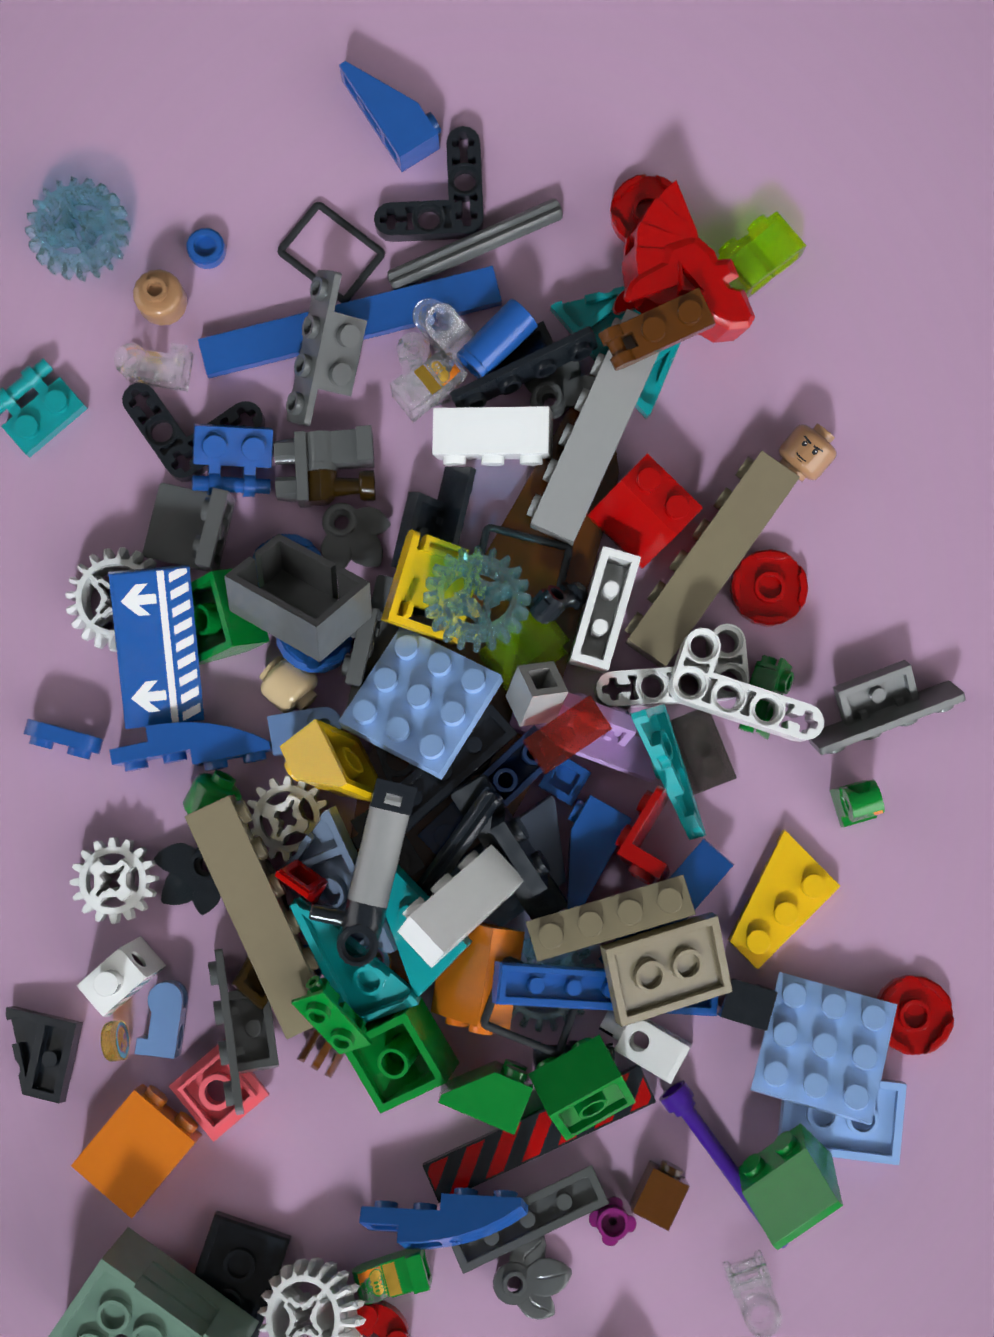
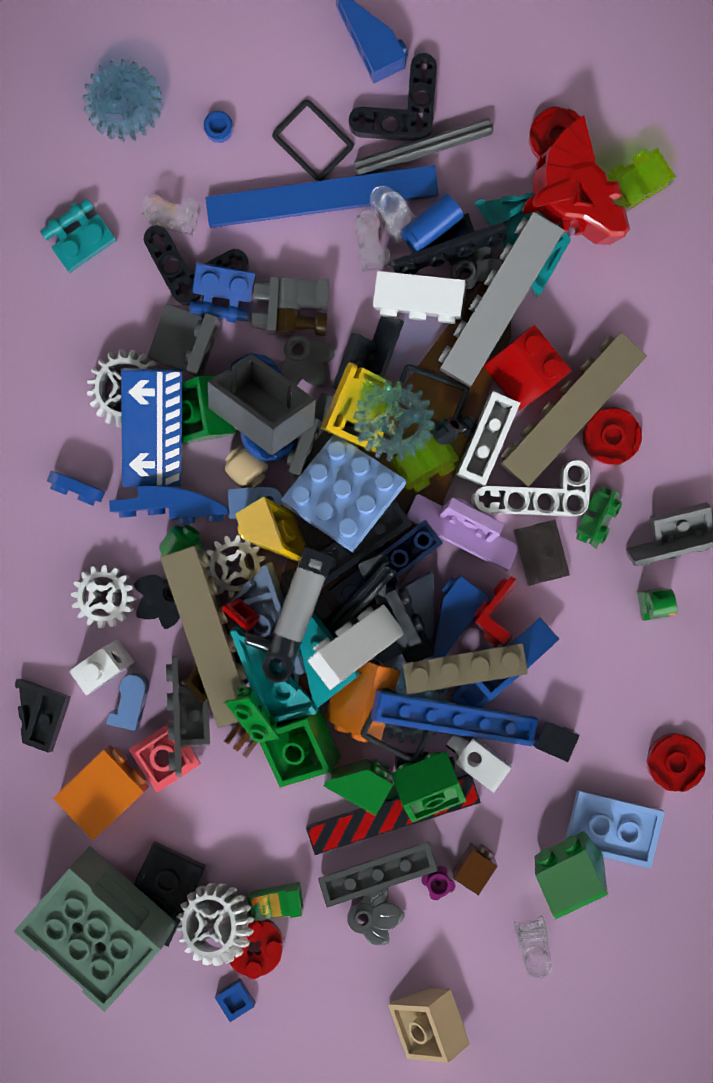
camera: 10 degrees right, 5 degrees up
(115, 1041) = (93, 712): clear yellow tile -> none
(160, 297) = (179, 161): medium nougat head -> none
(327, 351) = (302, 217): dark grey bracket -> none
(428, 384) = (375, 252): clear leg -> none
(460, 1220) = (328, 870): blue slope -> none
(536, 693) = (430, 496): light grey brick -> none
(565, 781) = (442, 561): blue tile -> none
(567, 734) = (449, 529): clear red plate -> none
(658, 329) = (555, 230): reddish brown plate -> none
(666, 969) = (501, 709): dark tan plate -> none
(667, 763) = (520, 561): teal wing -> none
(680, 1101) = (498, 804): dark purple piece -> none
(746, 694) = (585, 515): white beam -> none
(781, 902) = (591, 669): yellow wing -> none
(808, 451) = (655, 336): medium nougat head -> none
(825, 1048) = (608, 779): light blue plate -> none

